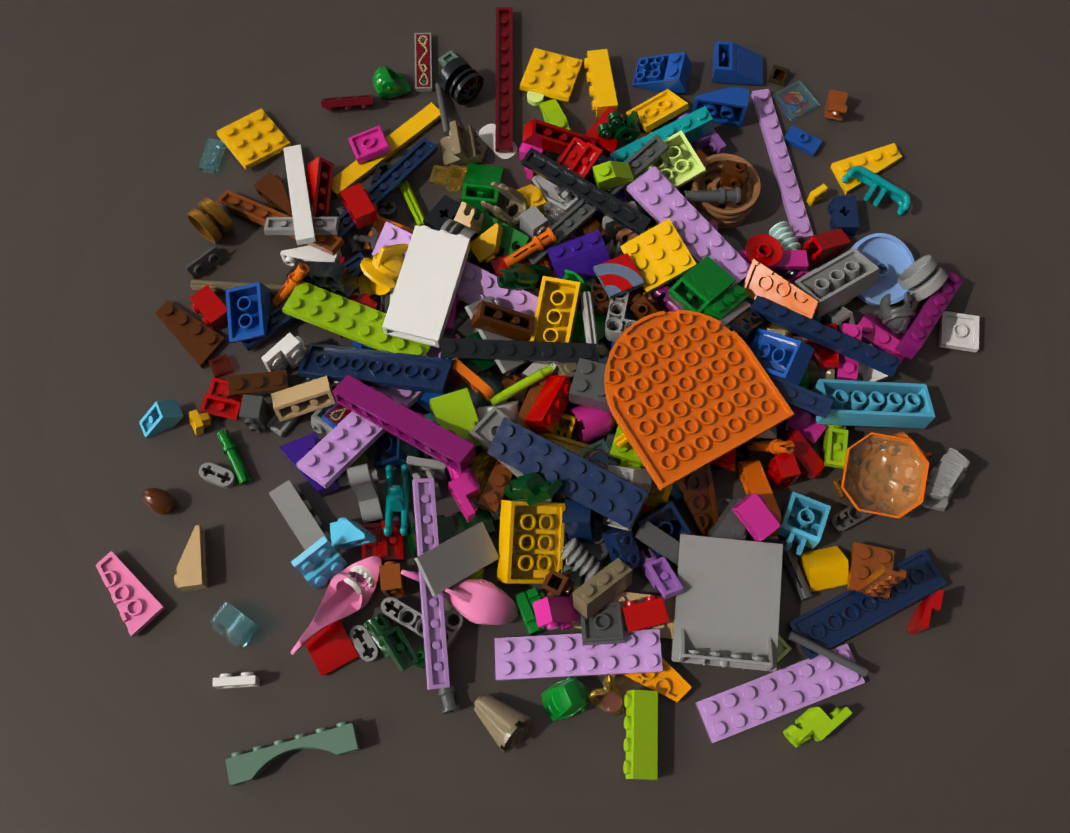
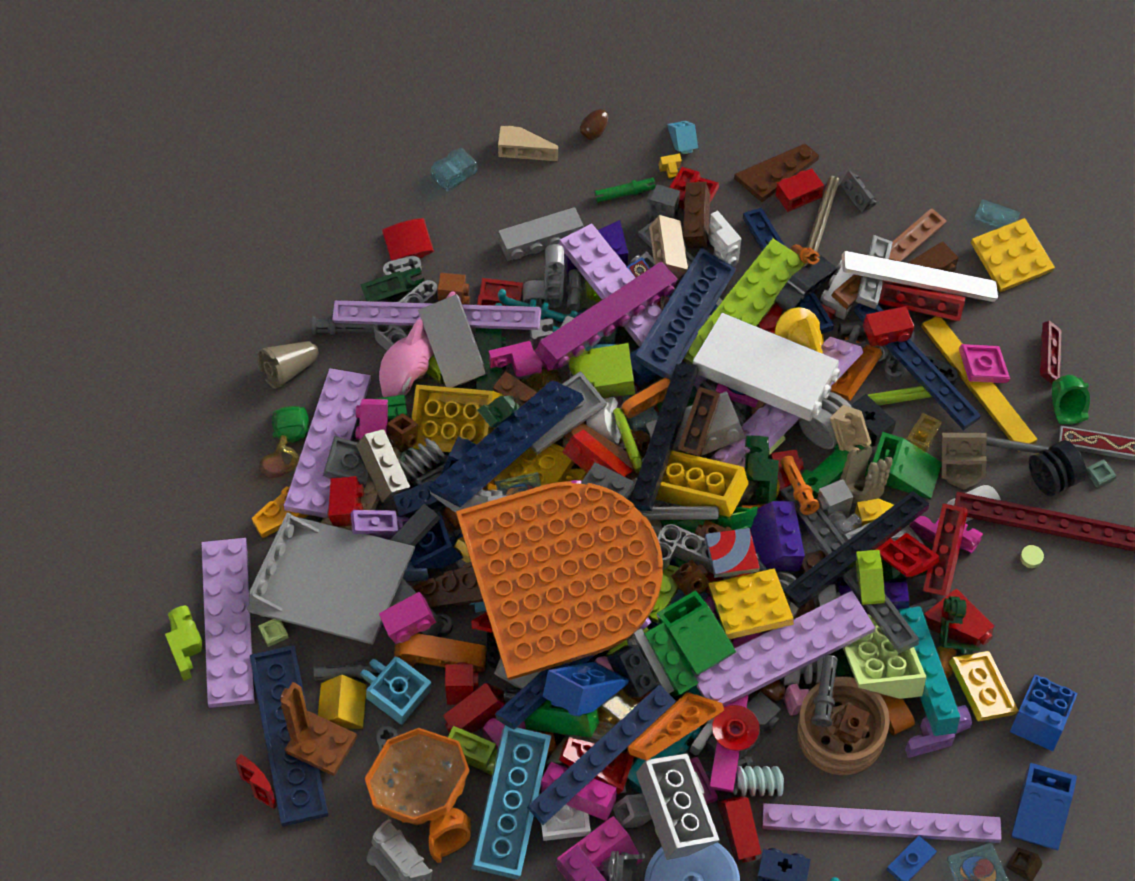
camera: 105 degrees right, 10 degrees down
(131, 597) = (510, 95): bright pink wing -> none
(210, 220) = (903, 195): pearl gold wheel -> none
(219, 471) = (606, 173): light grey beam -> none
(220, 366) = (731, 192): clear red tile -> none
(227, 680) = (398, 167): white plate -> none
(248, 311) = (782, 216): blue slope -> none
(248, 766) = (317, 229): sand green arch -> none
(319, 563) = (489, 238): medium azure plate -> none
(345, 595) = (448, 250): bright pink piece -> none
(349, 534) = (513, 269): medium azure slope -> none
(487, 244) = (817, 450): yellow slope -> none
(551, 74) = (1062, 580): yellow plate -> none
(553, 113) = (988, 567): lime slope -> none
(601, 81) = (1039, 633): yellow brick -> none
(641, 735) = (231, 476): lime brick -> none
(725, 105) = (972, 773): blue slope -> none
(773, 446) = (485, 672): orange pin -> none
(817, 194) = (821, 847): yellow tile -> none
(828, 654) = (248, 670): dark grey bar -> none

